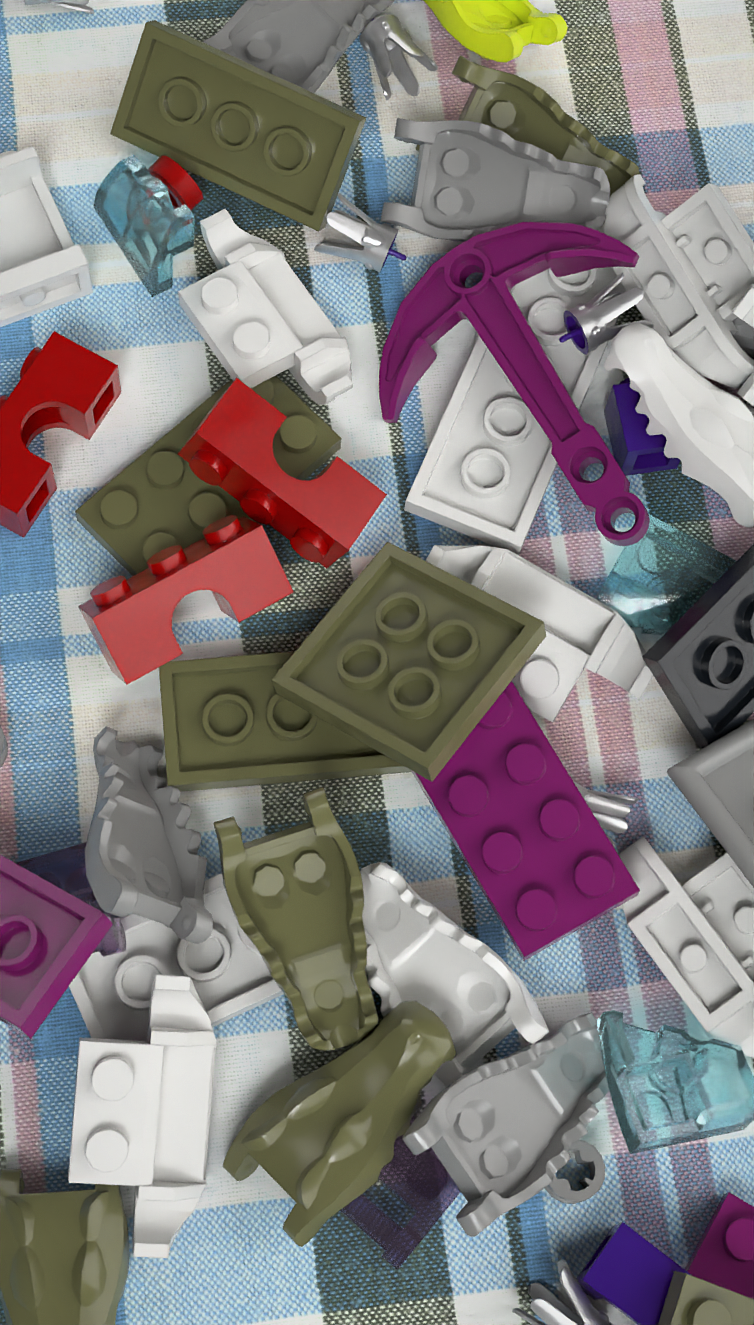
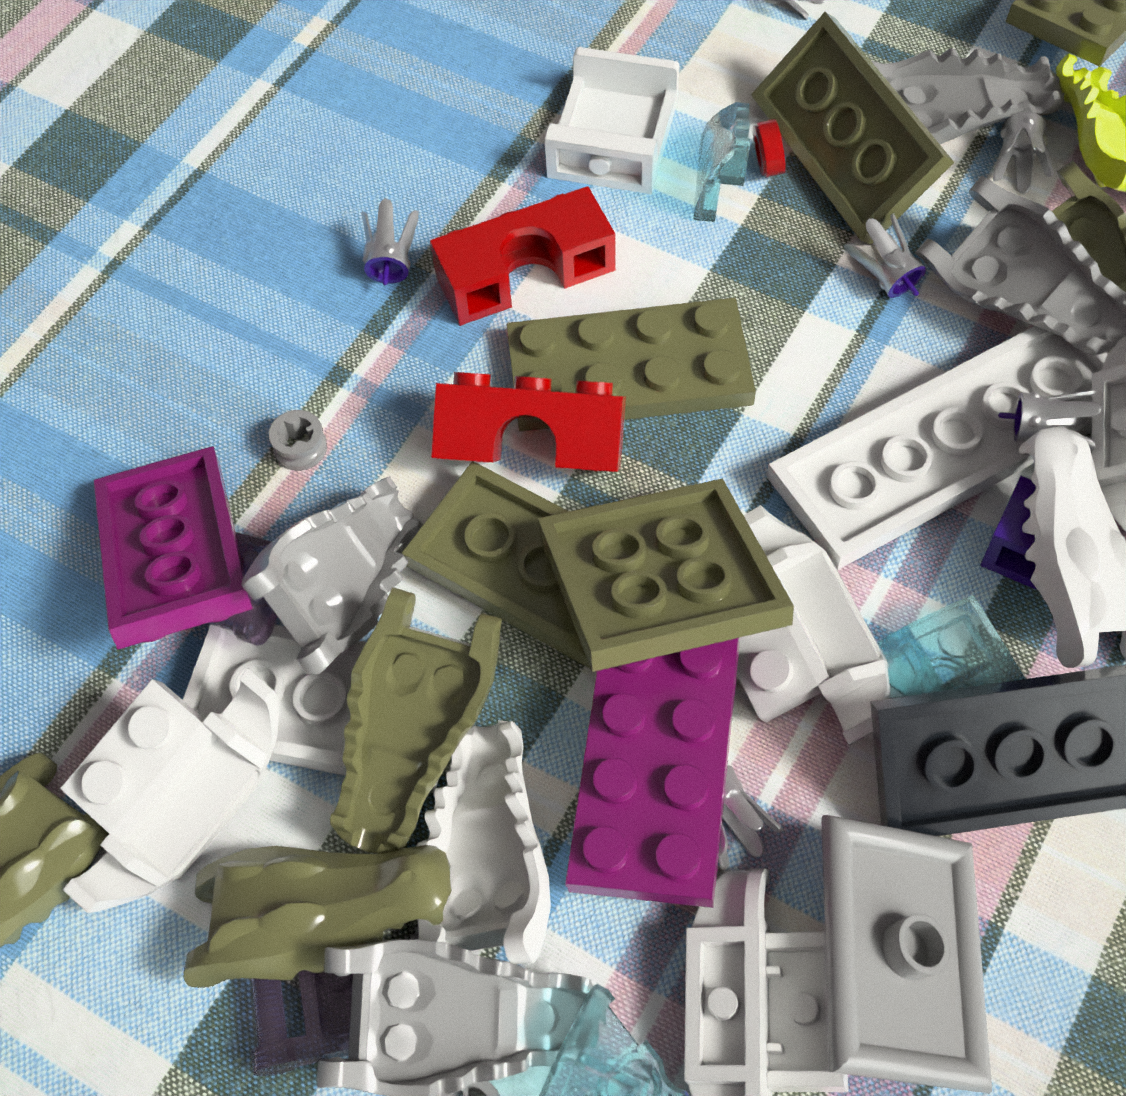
camera: 50 degrees right, 10 degrees down
(236, 453) = (685, 427): red arch -> none
(263, 316) = (764, 269): white plate -> none
(442, 301) = (955, 340): magenta piece -> none

